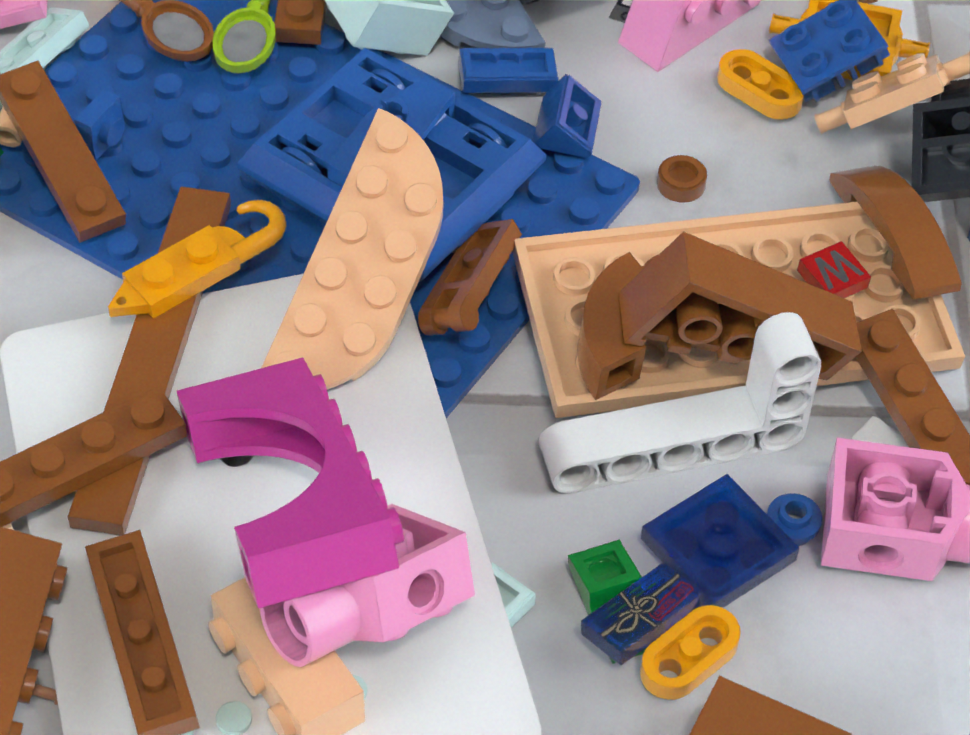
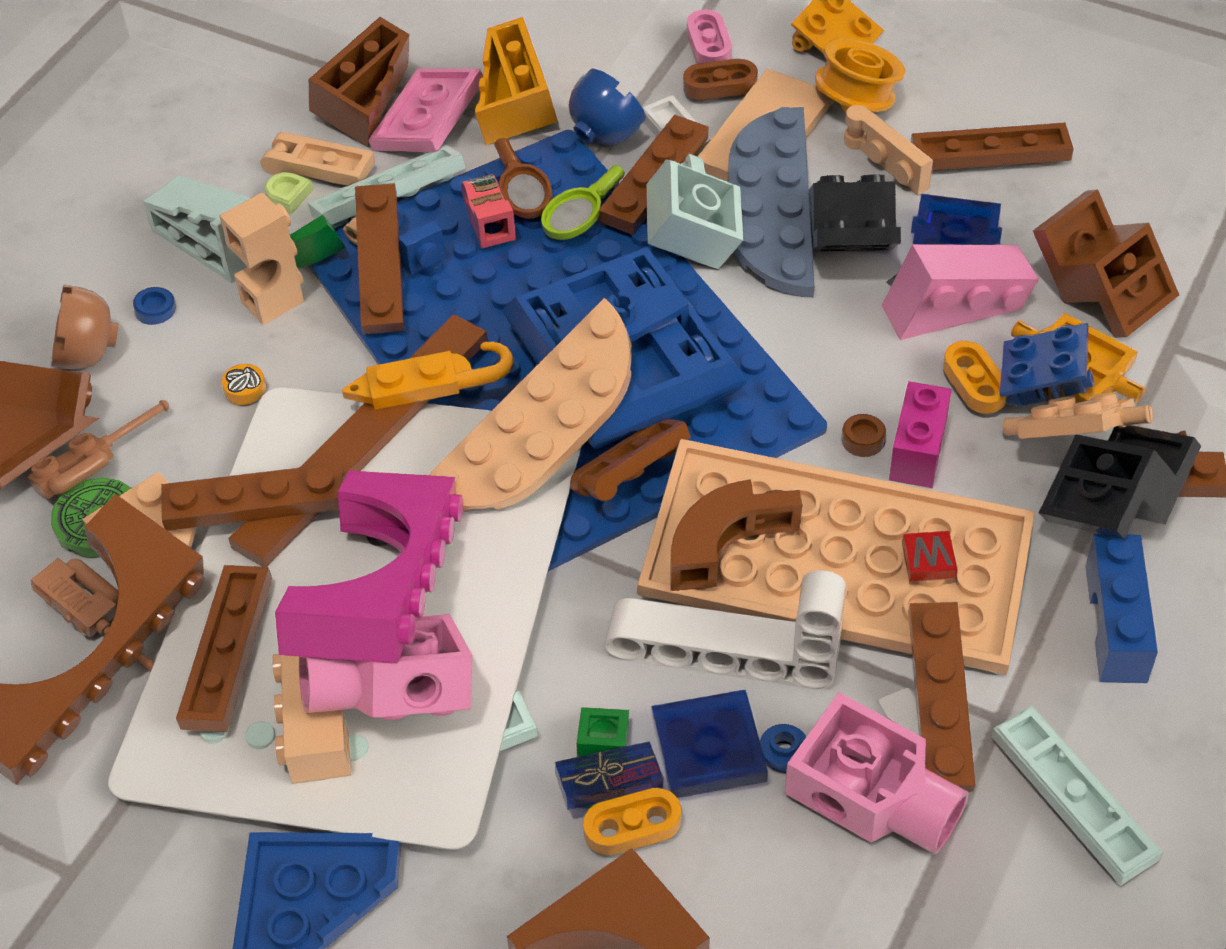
camera: 30 degrees right, 0 degrees up
(145, 59) = (486, 206): none -> coral leg
(507, 70) = (770, 300): blue plate -> none
(568, 119) = (794, 356): blue slope -> none
(718, 300) = (786, 538): dark orange wedge -> none
(745, 157) = (920, 434): none -> dark pink brick
(903, 219) = (1013, 539): dark orange slope -> none

